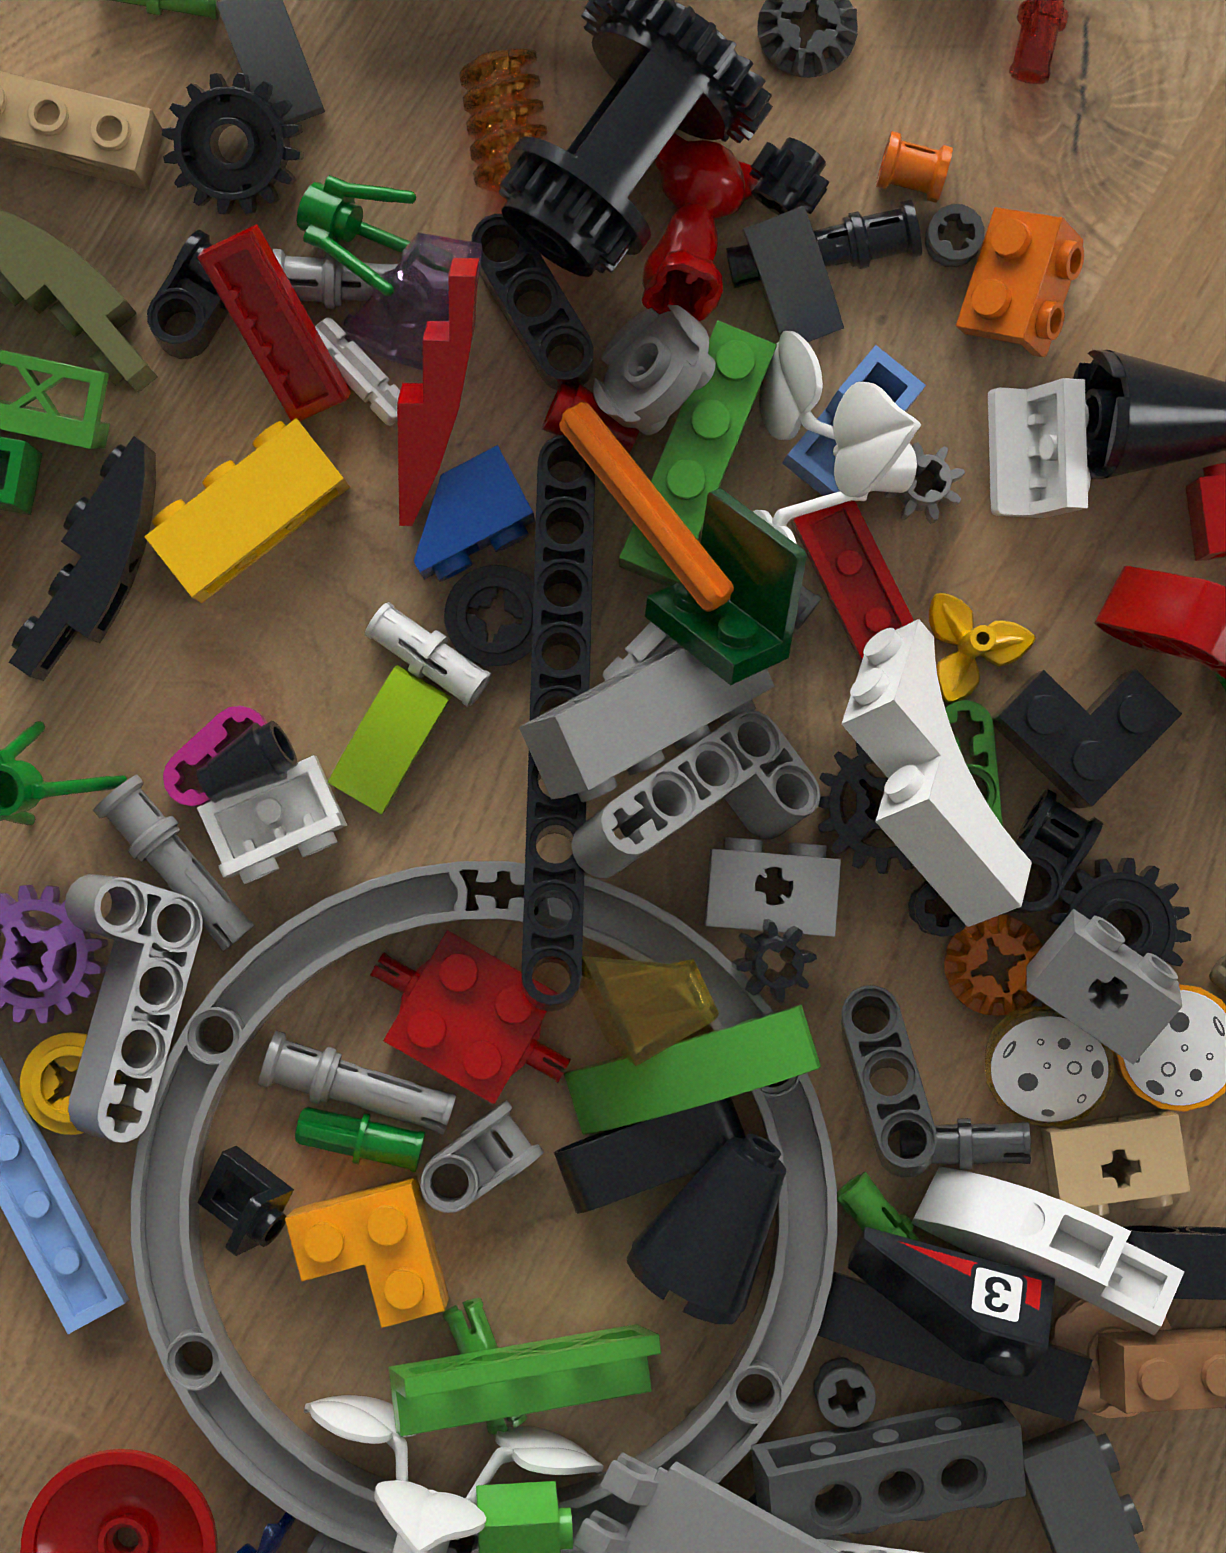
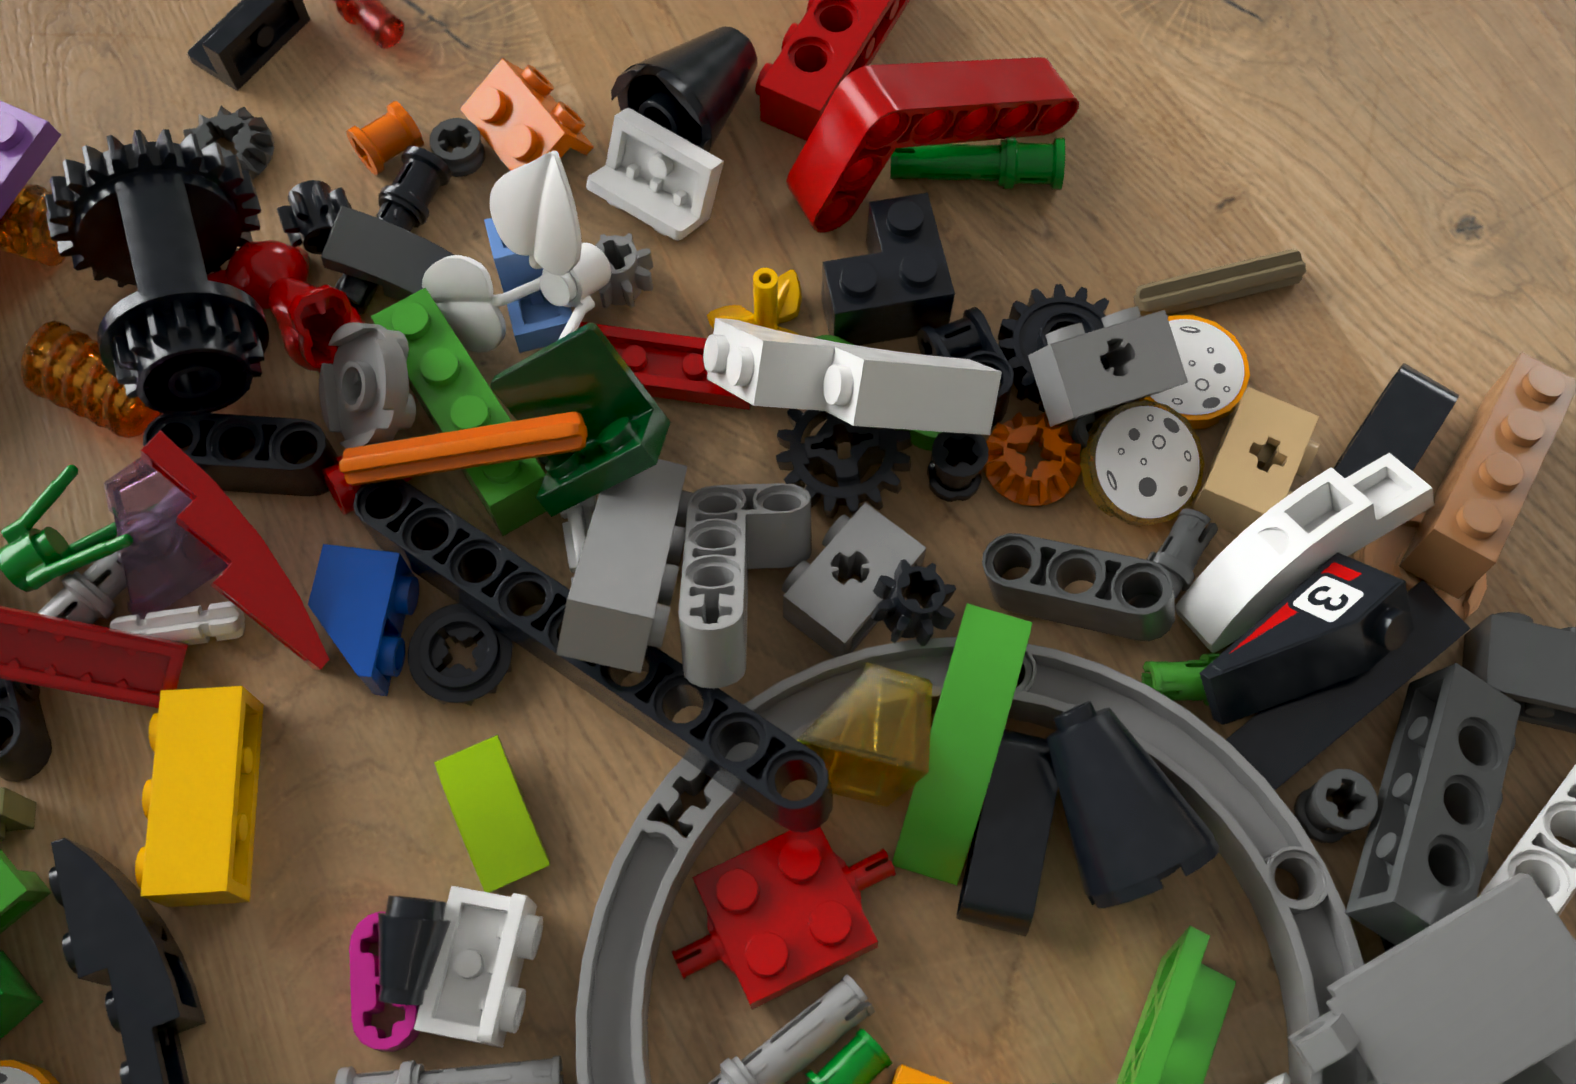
camera: 60 degrees left, 20 degrees down
(427, 654) = (404, 743): white pin -> none
(481, 1158) = (920, 981): light grey piece -> none

